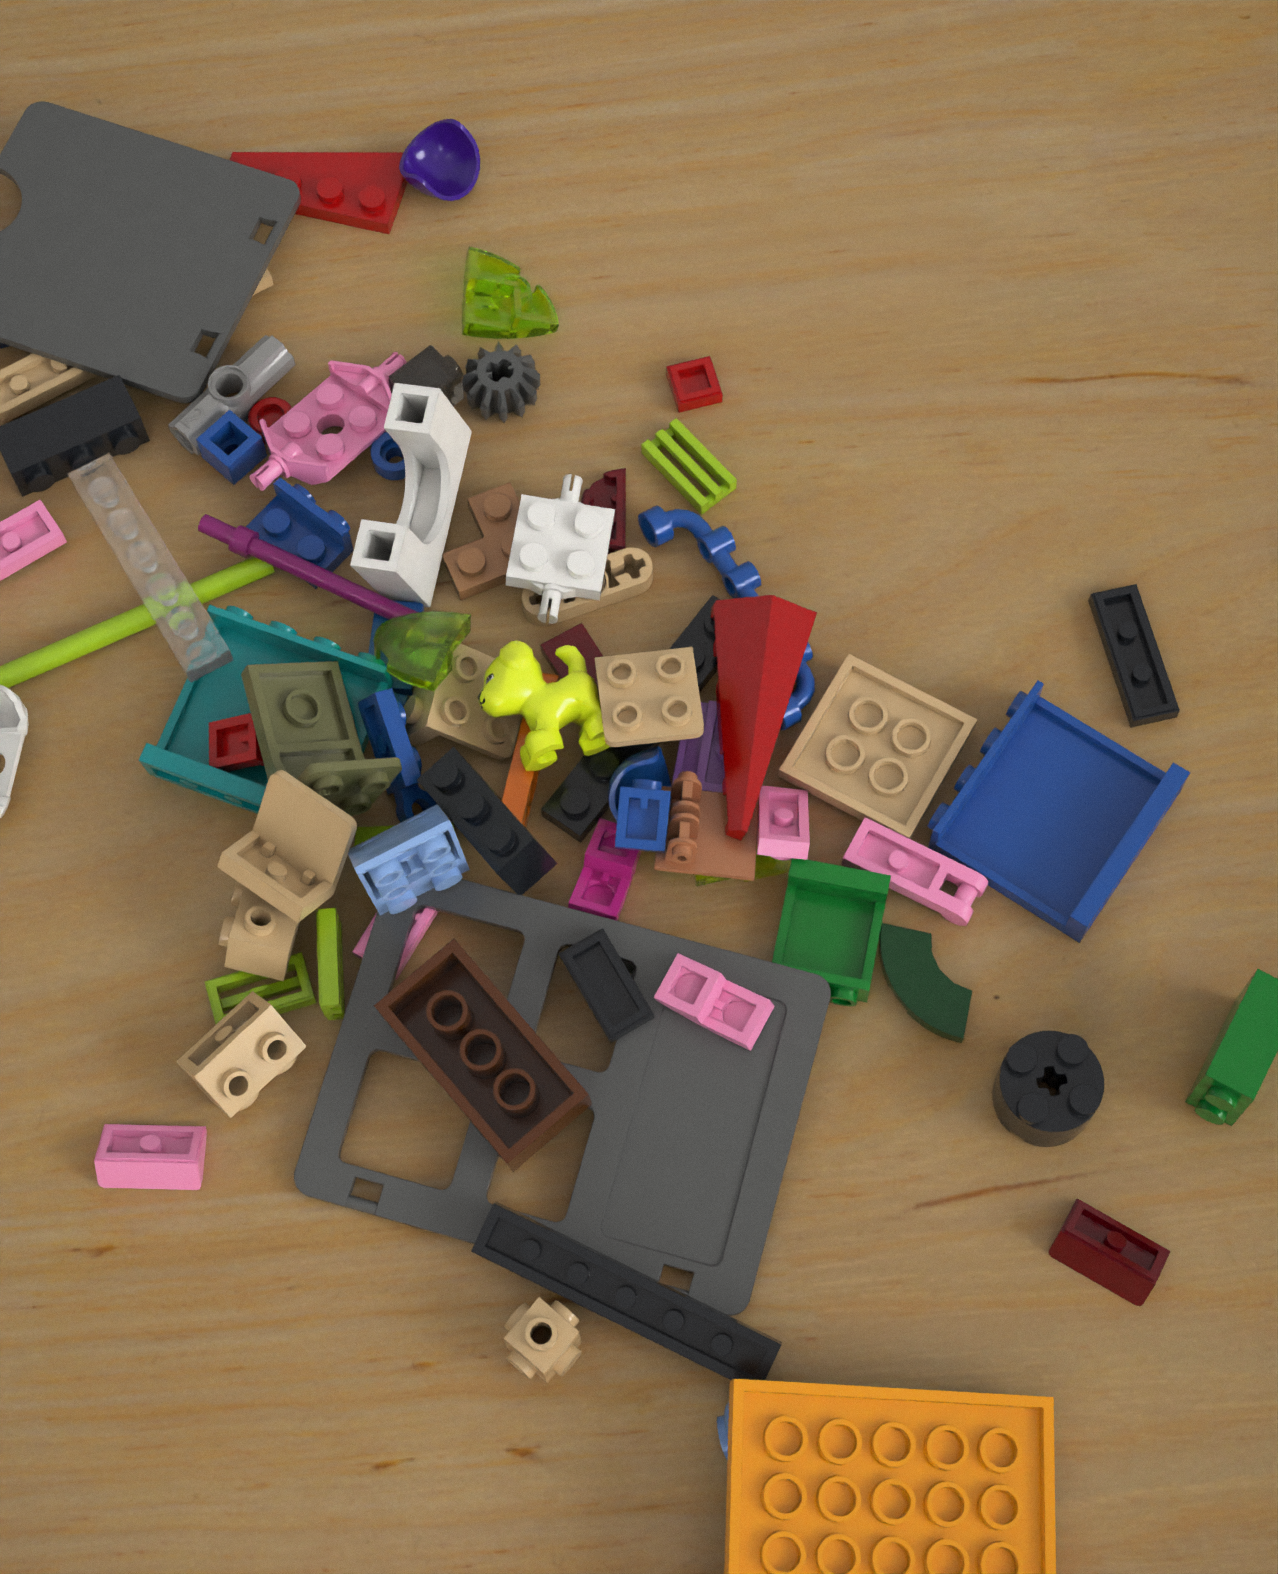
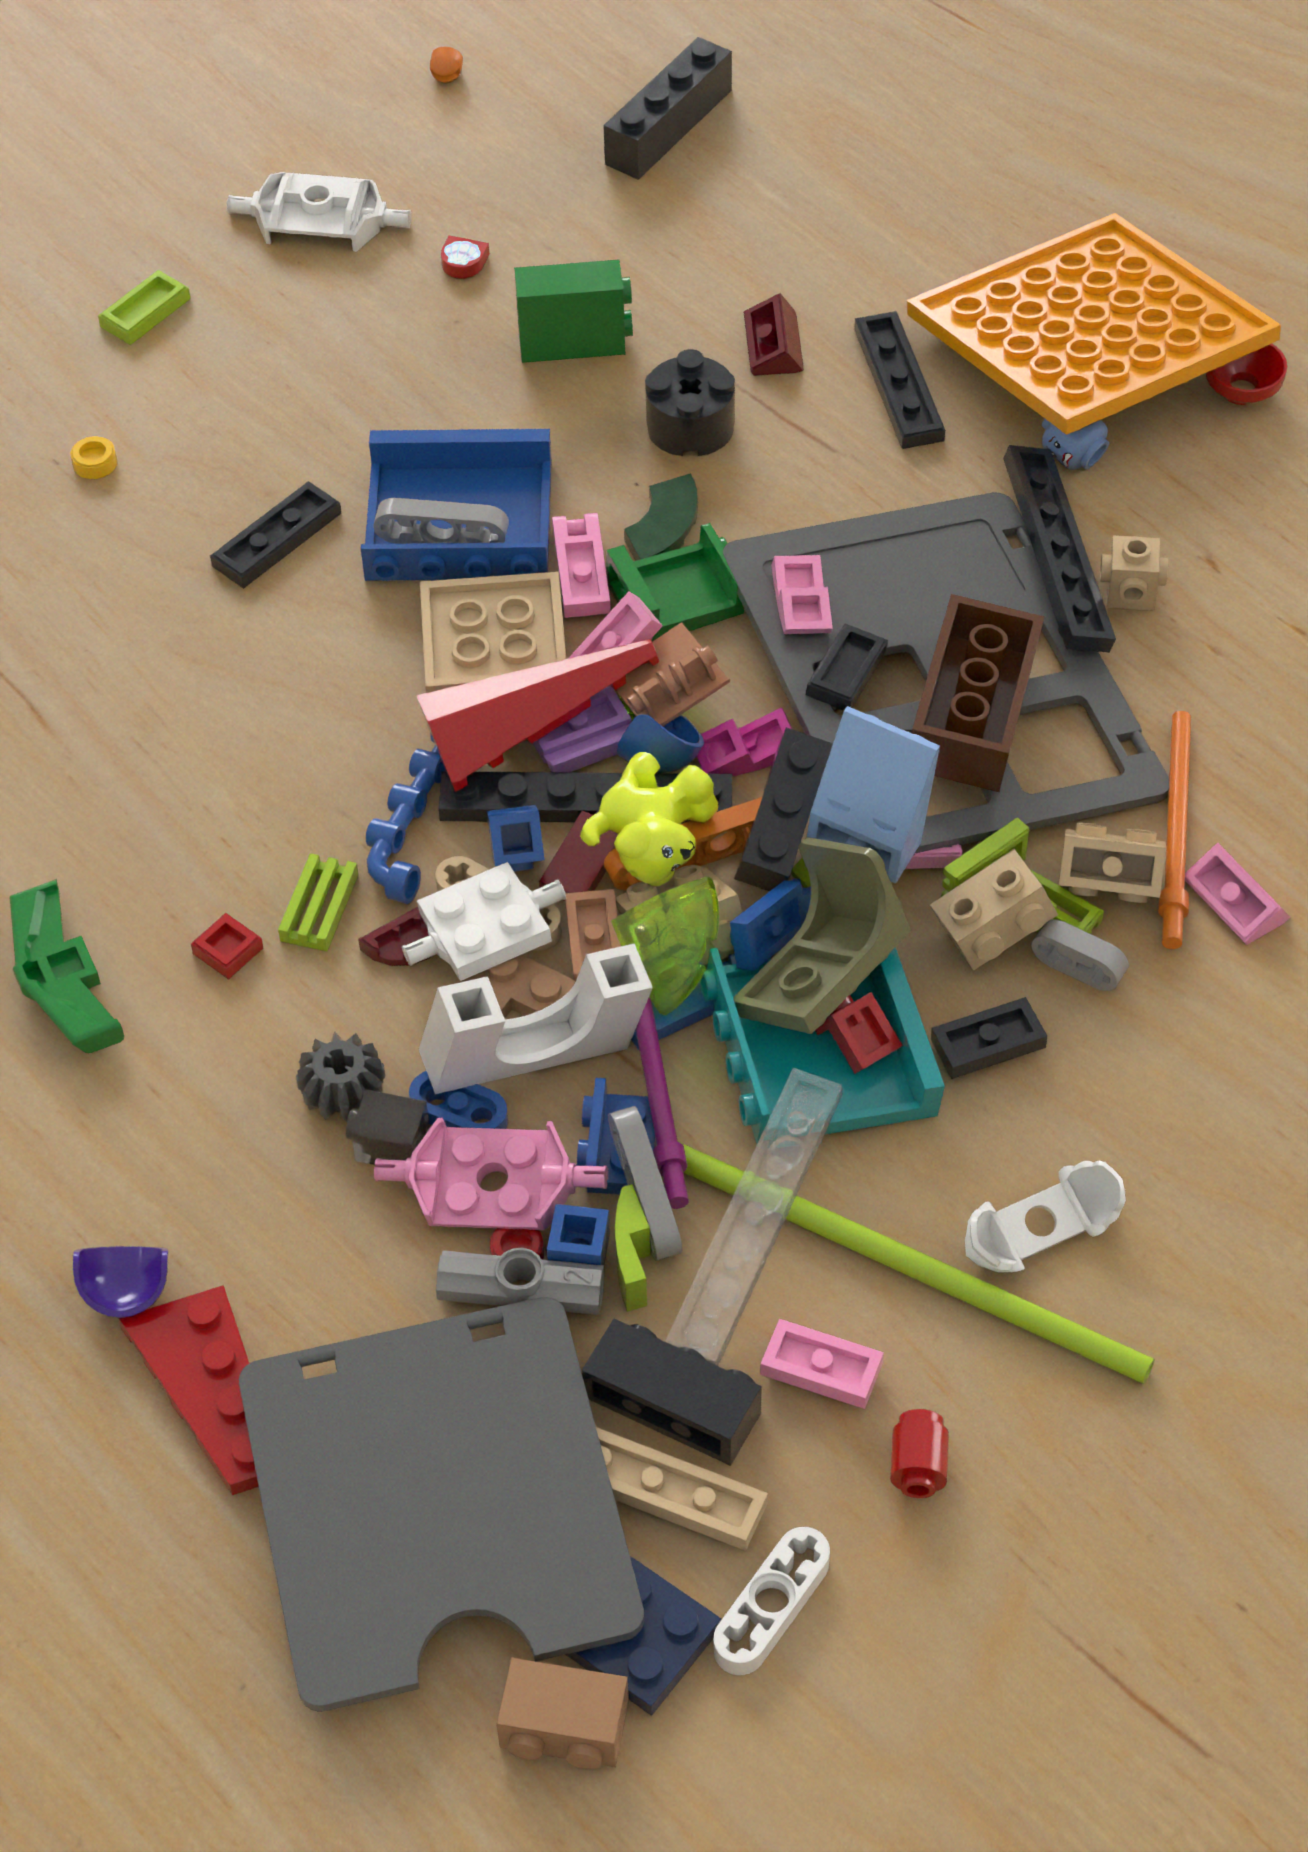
camera: 125 degrees left, 15 degrees down
(172, 847) = (988, 1037): none -> black plate
(183, 972) = (1080, 955): none -> light grey beam
(184, 1094) = (1174, 898): none -> orange bar
(211, 485) = (632, 1244): none -> lime slope
(237, 506) = (643, 1173): none -> light grey beam
(293, 849) = (942, 885): tan bracket -> none
(497, 624) = (590, 924): none -> nougat plate
(501, 301) = (242, 1141): clear neon green brick -> none
(629, 618) = (516, 837): none -> blue brick
(643, 816) = (694, 698): blue bracket -> none
(649, 697) = (586, 749): tan bracket -> none
(748, 254) = (58, 971): none -> green plate
(969, 1333) = (899, 380): none -> black tile
(1028, 768) = (410, 511): none -> light grey beam

